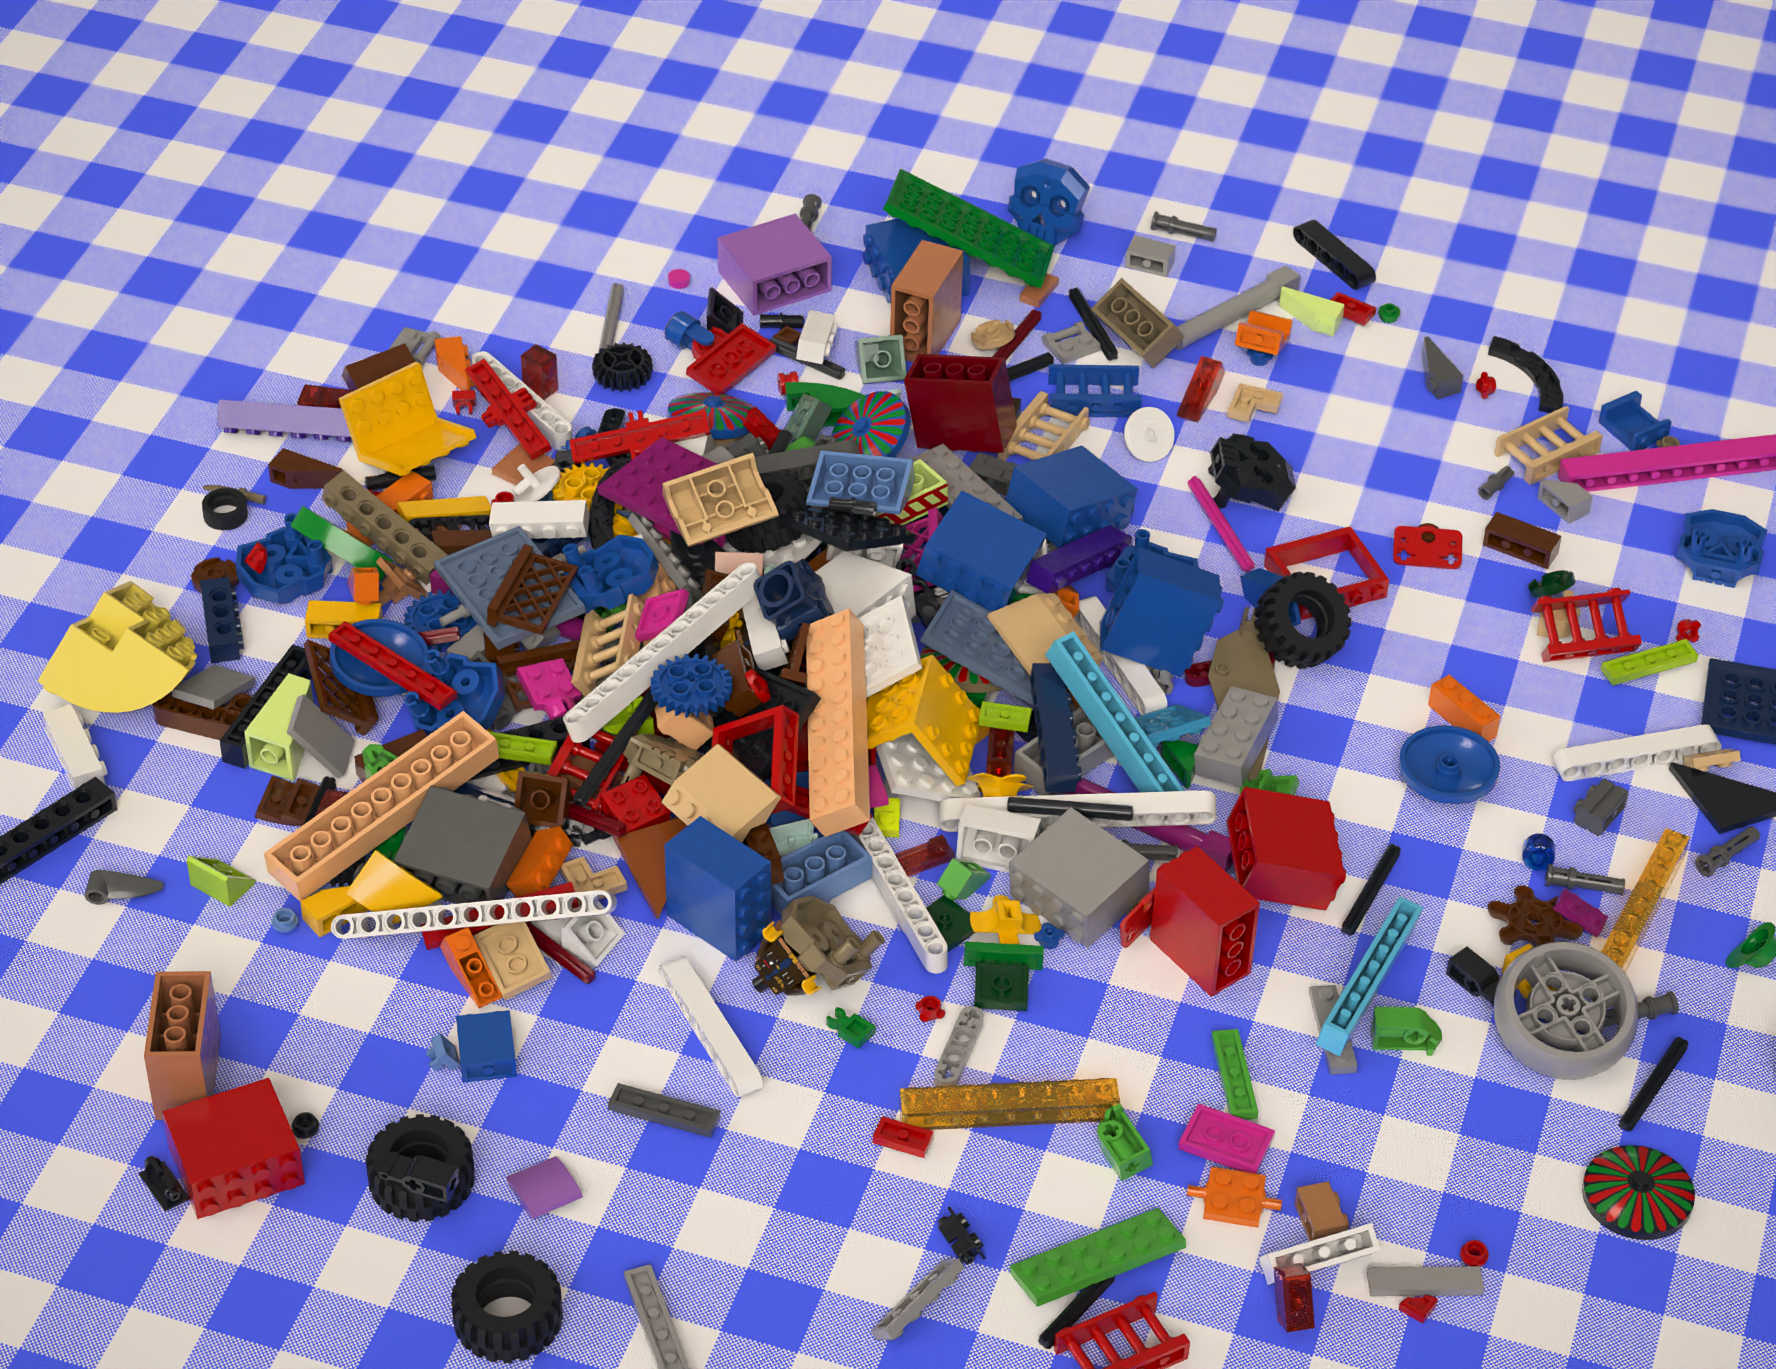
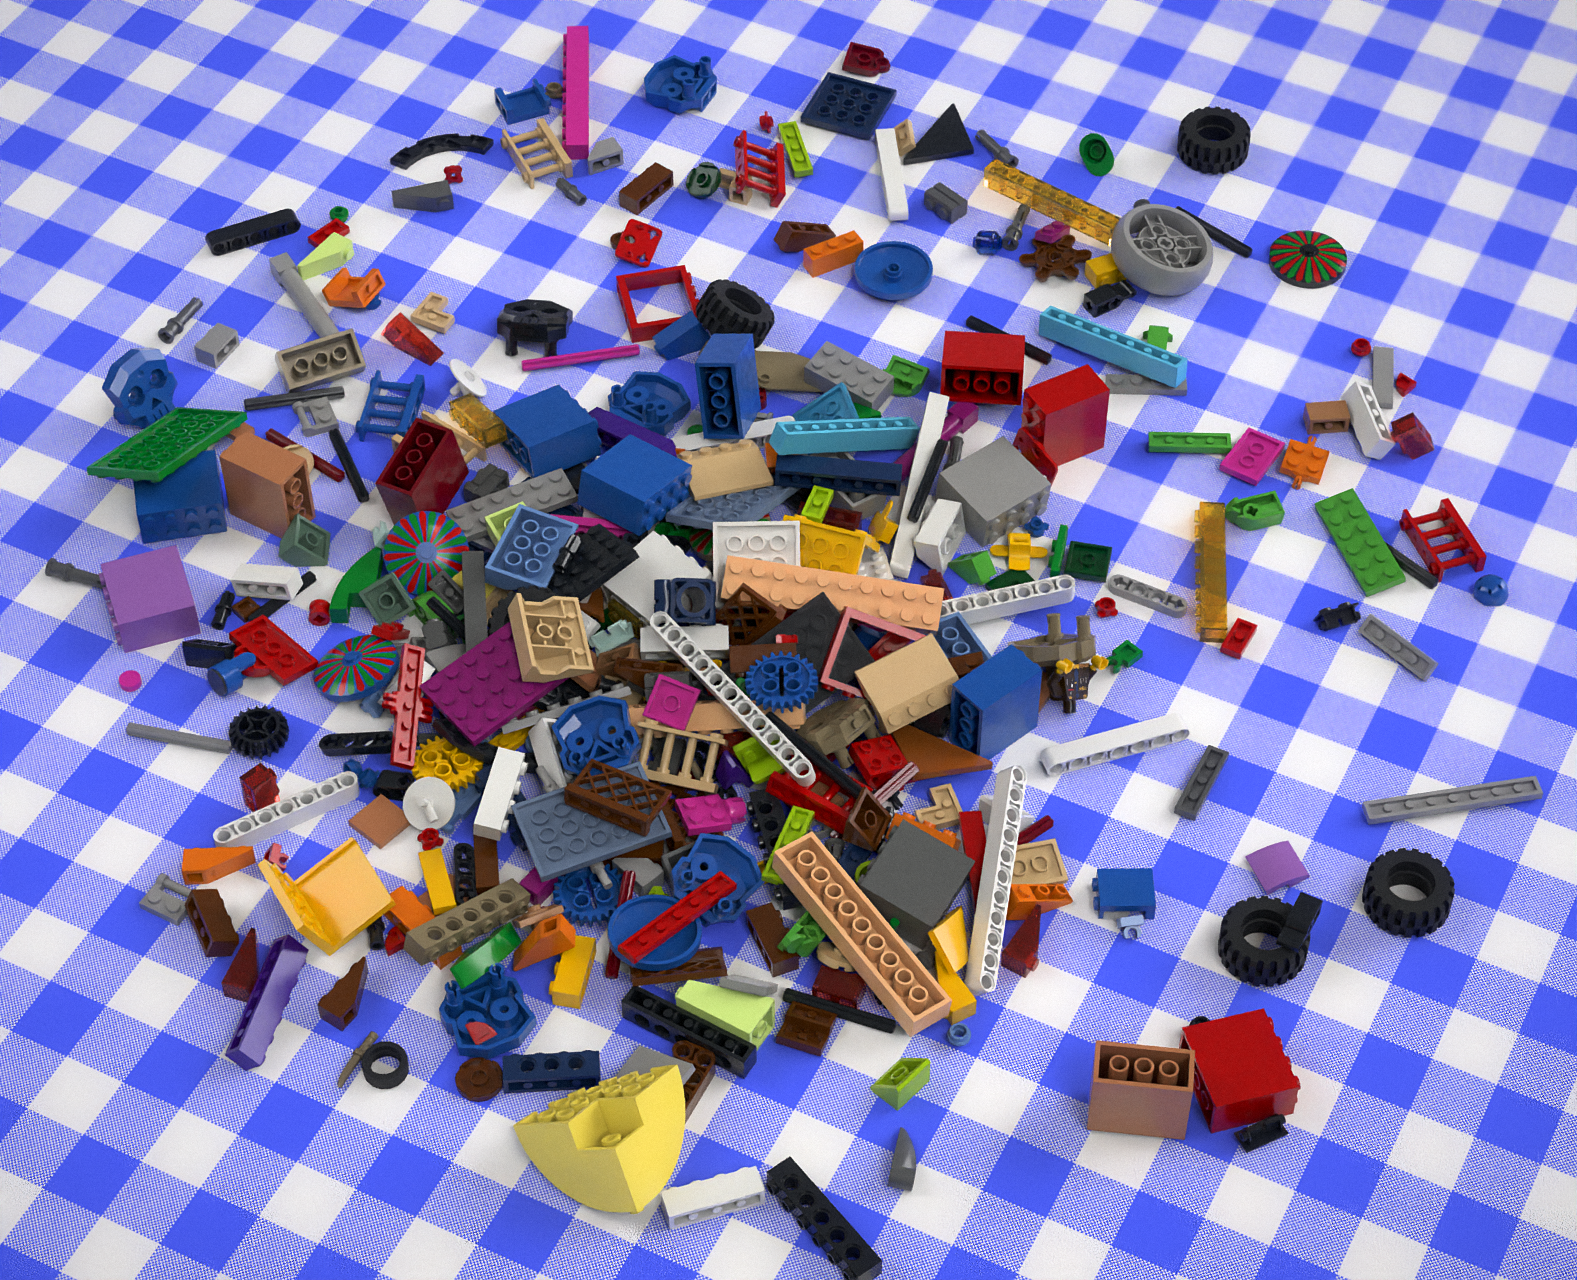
camera: 80 degrees left, 5 degrees up
(408, 965) = (1022, 951): none -> clear red slope
(508, 409) = (310, 817): red hinge -> none
(1099, 440) = (477, 420): none -> clear yellow brick
(1489, 682) = (799, 235): none -> reddish brown slope

